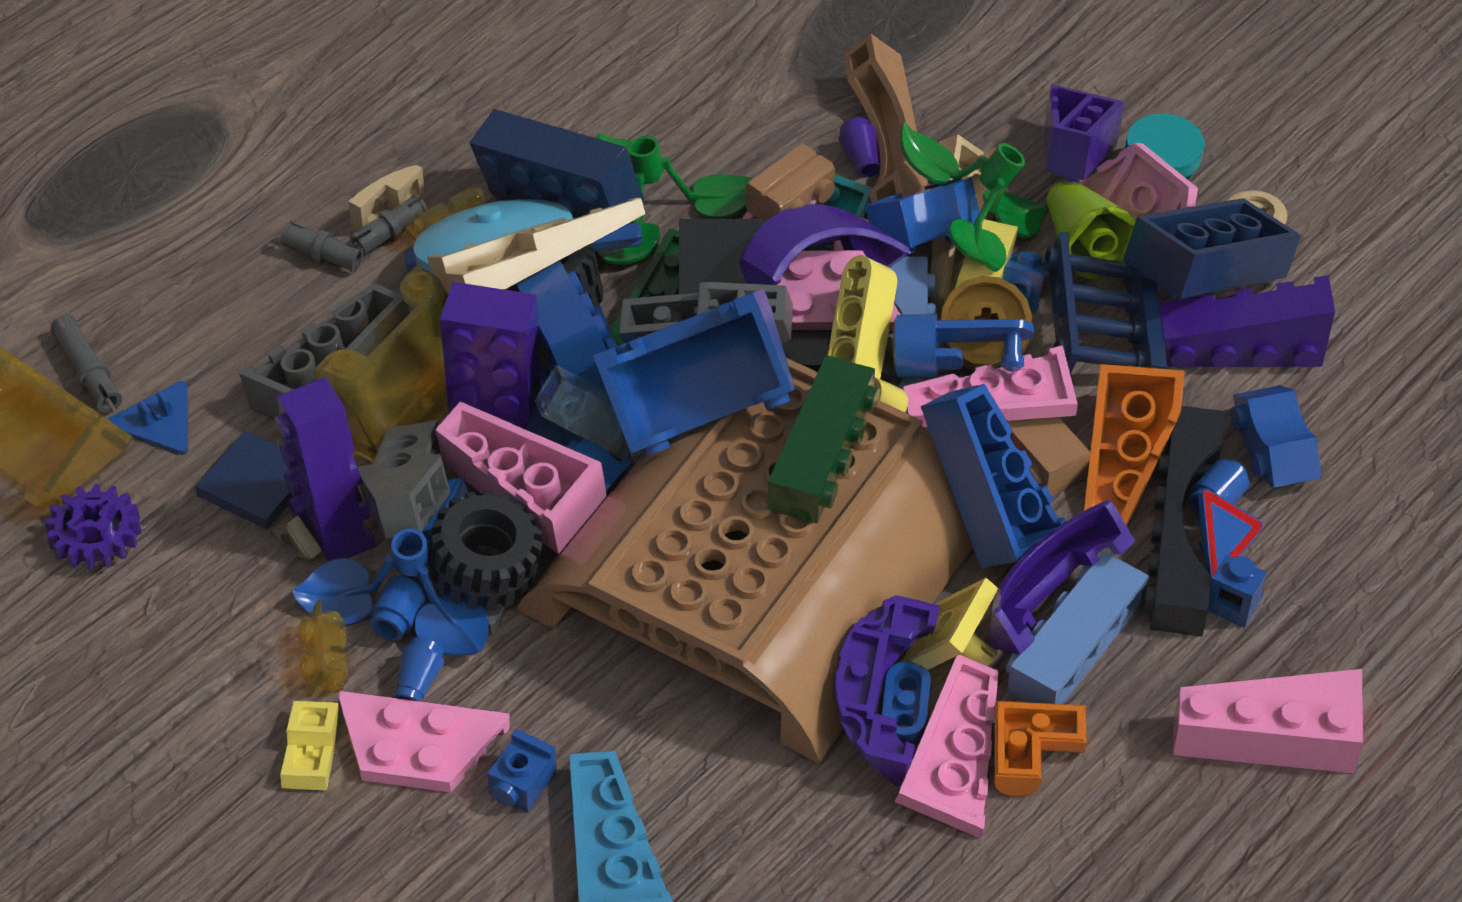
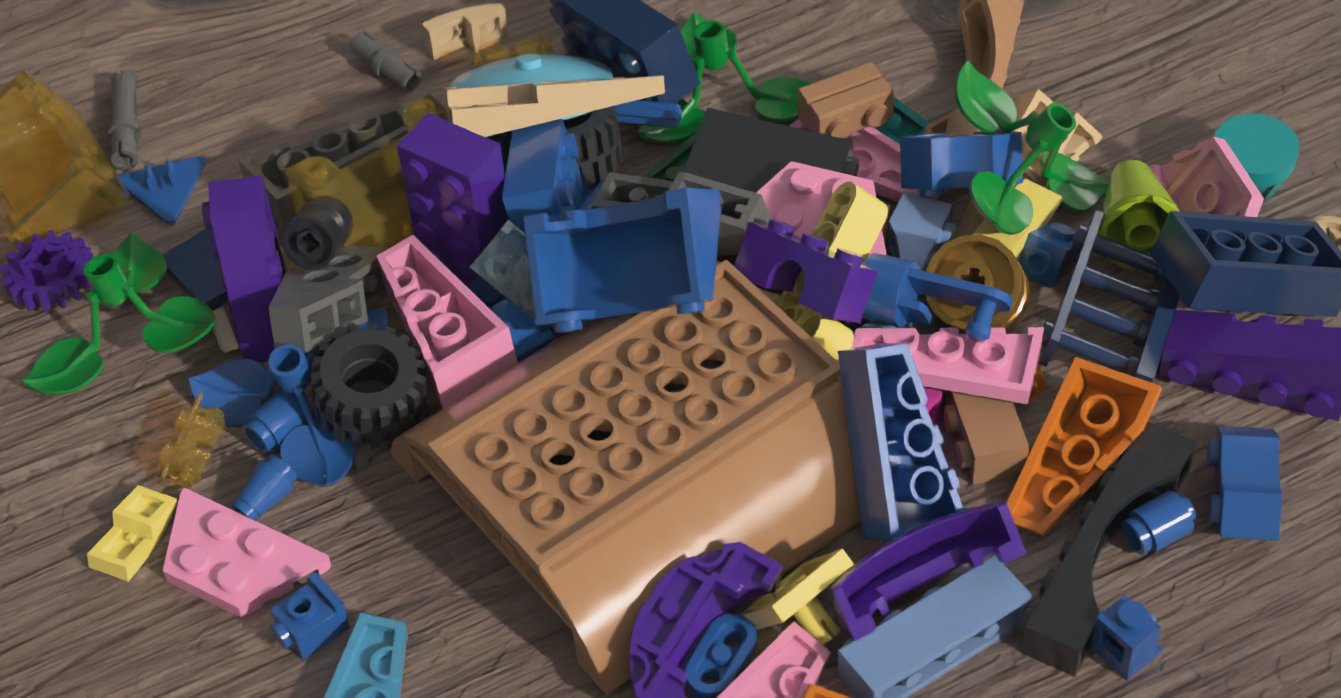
camera: 25 degrees right, 0 degrees up
(181, 511) = (114, 278): none -> green plant
(371, 420) = (317, 232): none -> black wheel
(388, 224) = (453, 56): dark grey pin -> none
(811, 225) = (827, 145): dark purple windscreen -> none
(822, 440) = (722, 359): dark green brick -> none
(860, 145) = (941, 78): dark purple cone -> none
(883, 345) = (832, 281): none -> dark purple arch
(1079, 131) = (1169, 115): dark purple wedge -> none
(1224, 529) = (1144, 566): blue piece -> none

